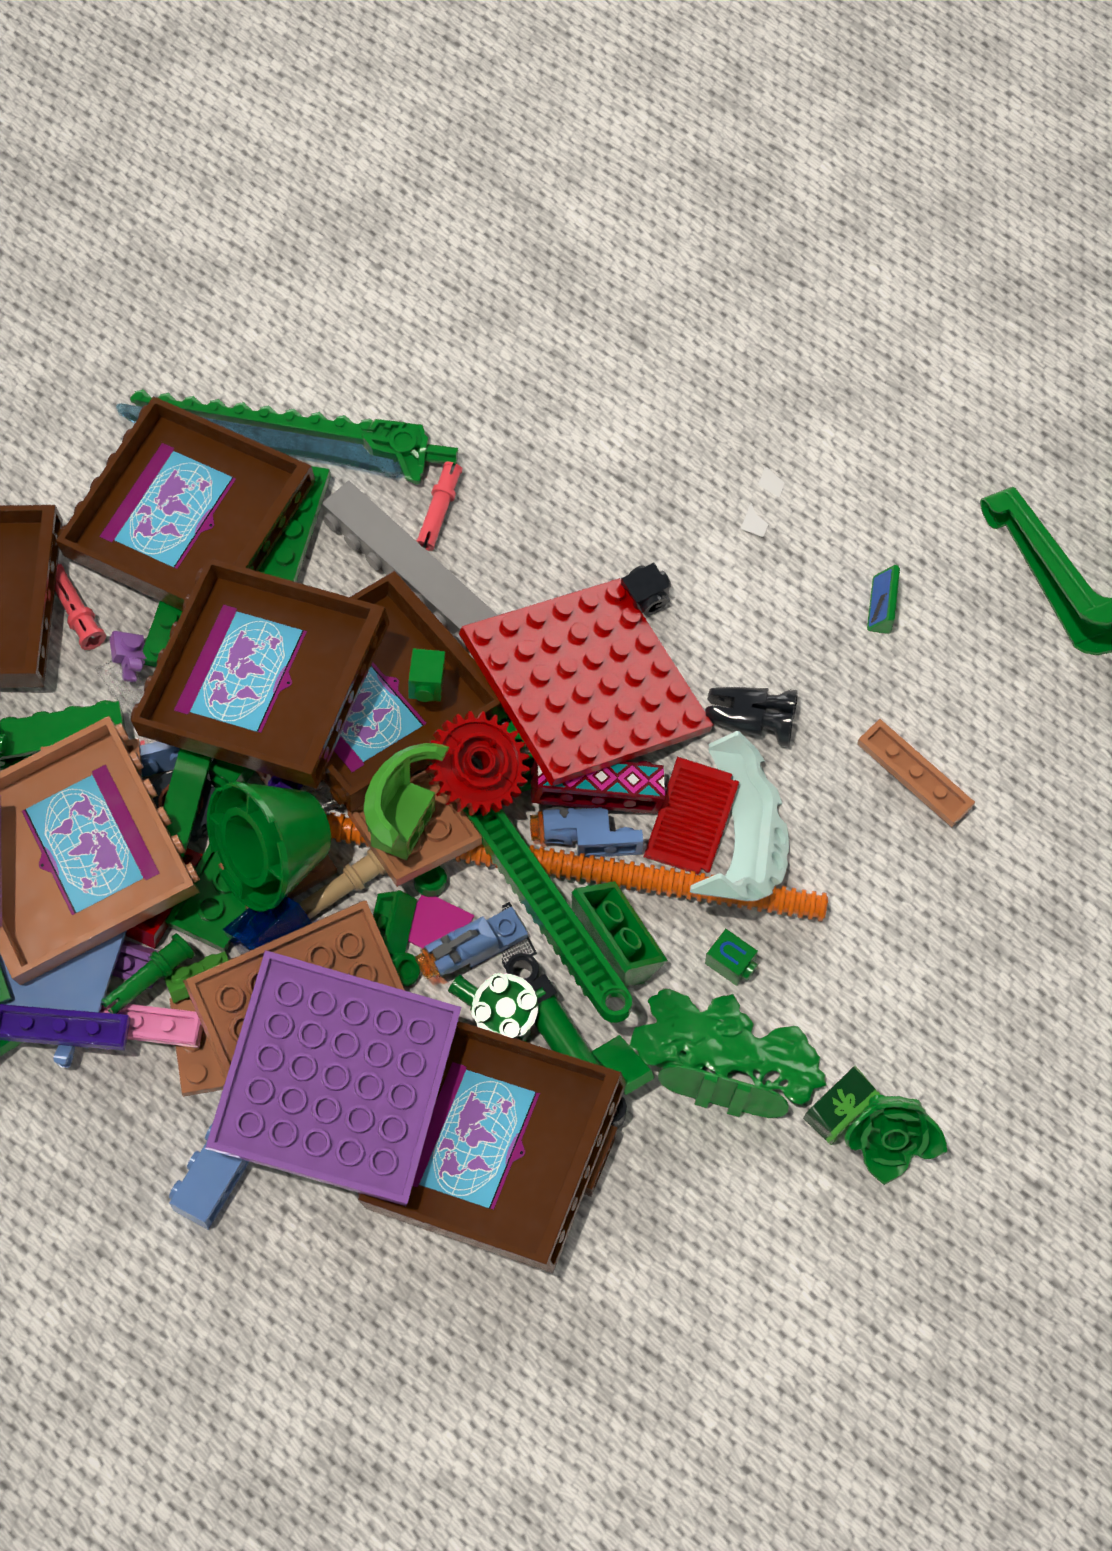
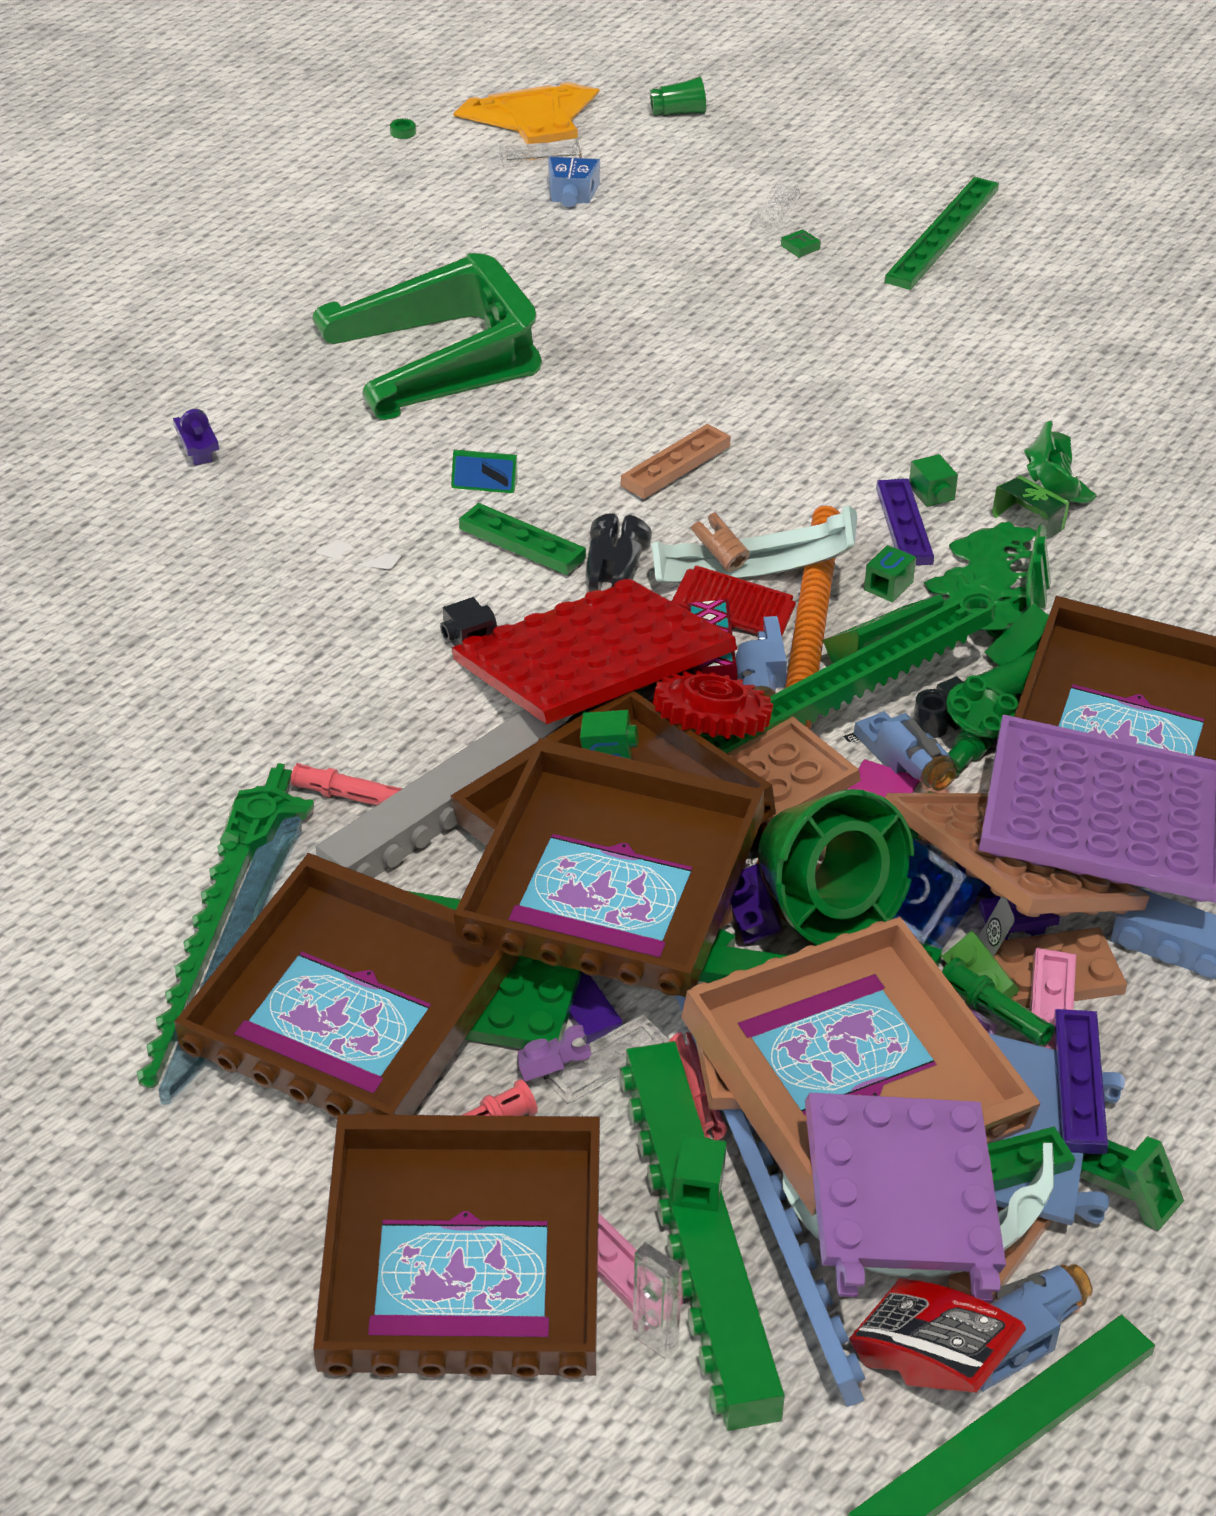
camera: 90 degrees left, 25 degrees down
(394, 806) = (784, 750): bright green piece -> none
(755, 804) = (722, 544): none -> nougat hinge
(781, 634) = (522, 538): none -> green plate
(829, 985) = (904, 519): none -> dark purple tile
(888, 1015) = (933, 480): none -> green brick
(923, 351) = (196, 436): none -> dark purple hips

